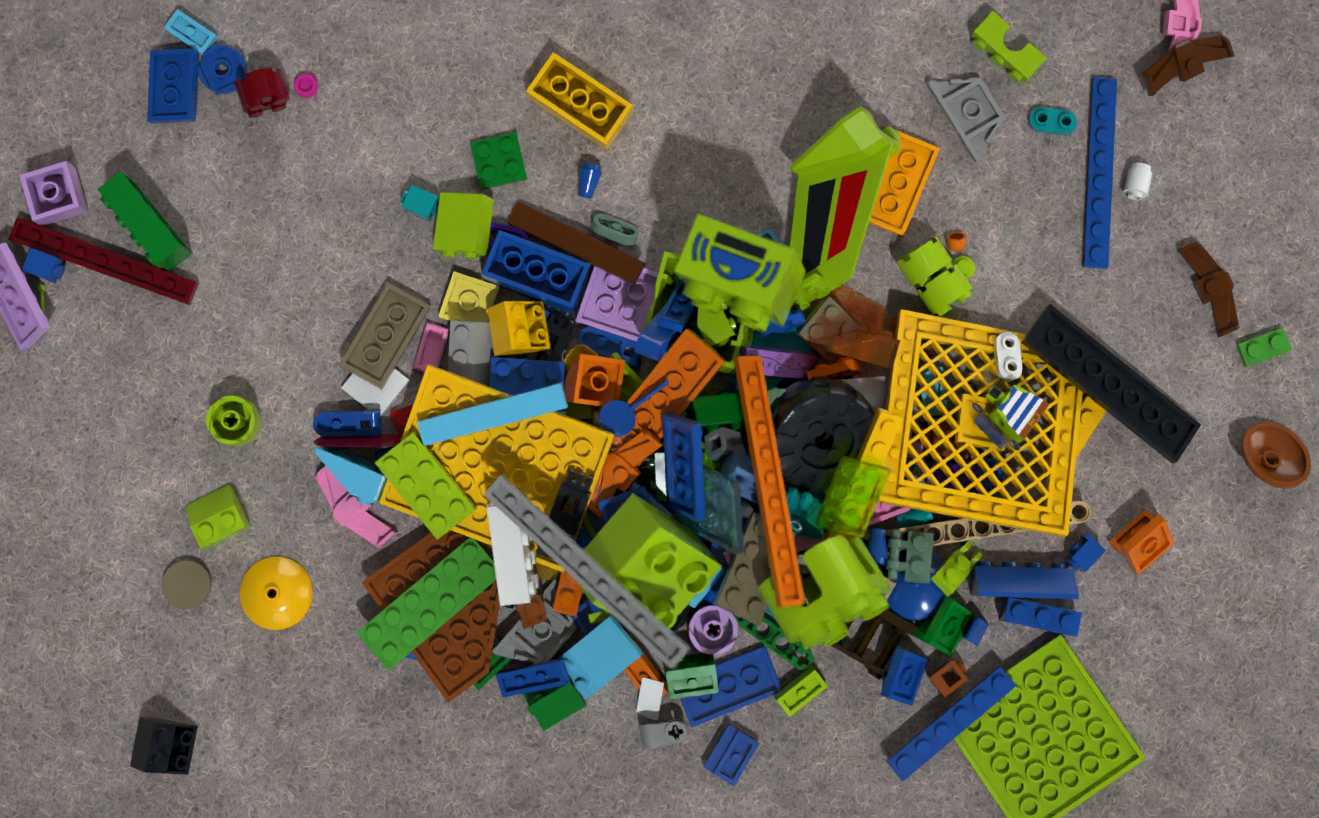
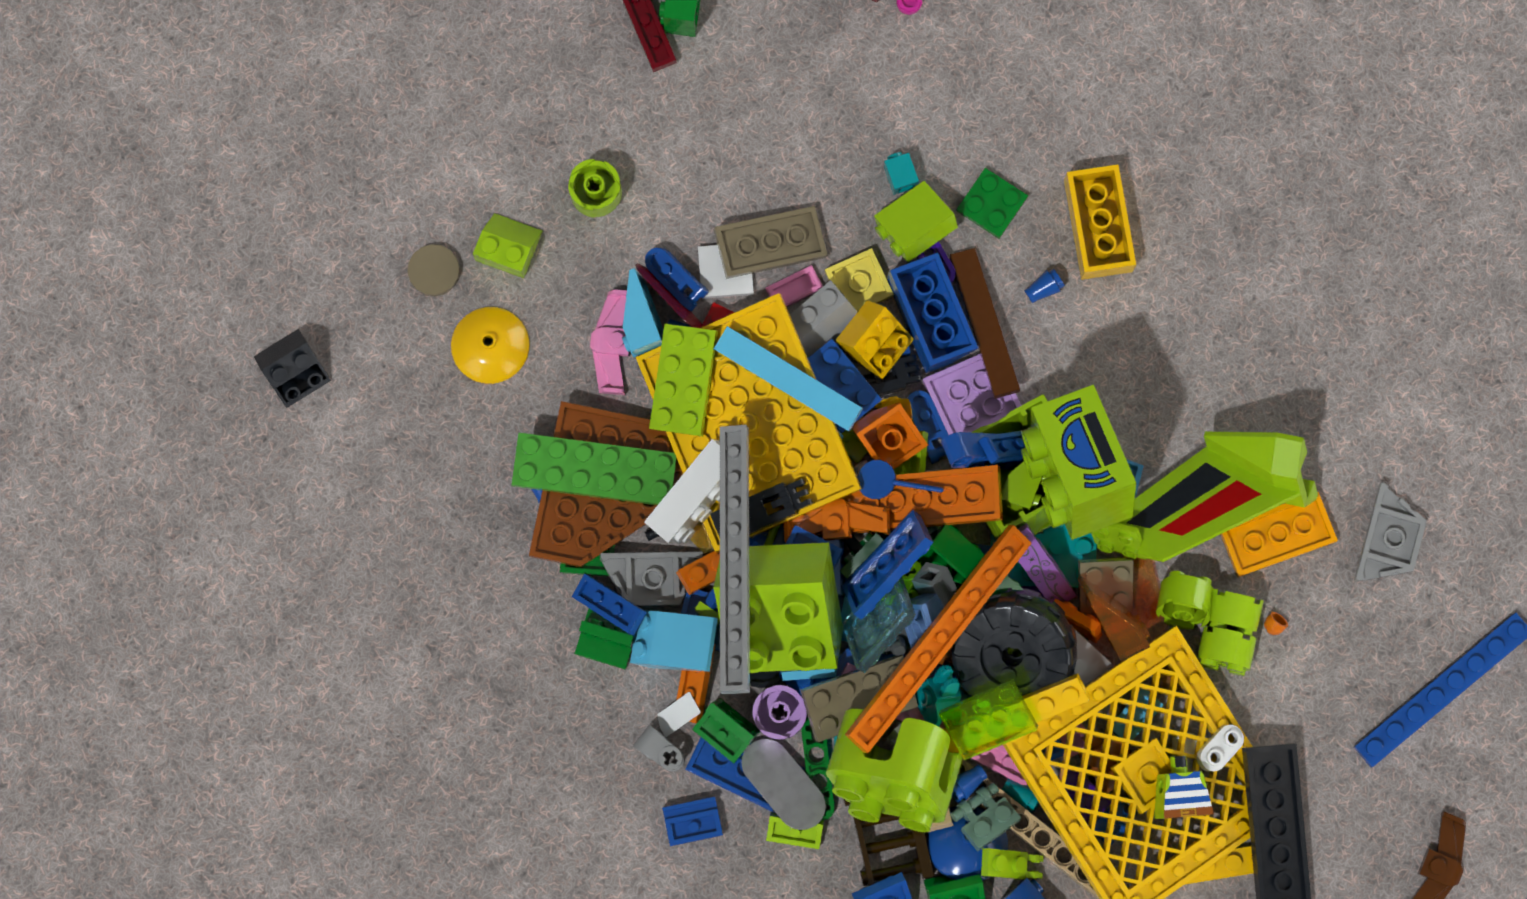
camera: 45 degrees right, 5 degrees down
(531, 613) = (660, 554): dark orange brick -> none
(615, 229) = (1024, 343): sand green plate -> none
(763, 671) = (783, 784): none -> flat silver sticker
(793, 320) = (1080, 546): blue plate -> none
(887, 286) = (1185, 600): none -> lime brick
(965, 264) = (1262, 650): lime plate -> none
(990, 437) = (1150, 799): blue piece -> none
(1020, 63) = (1470, 543): lime arch -> none
(1053, 121) = (1446, 614): teal plate -> none
(1138, 181) = (1466, 726): white brick -> none

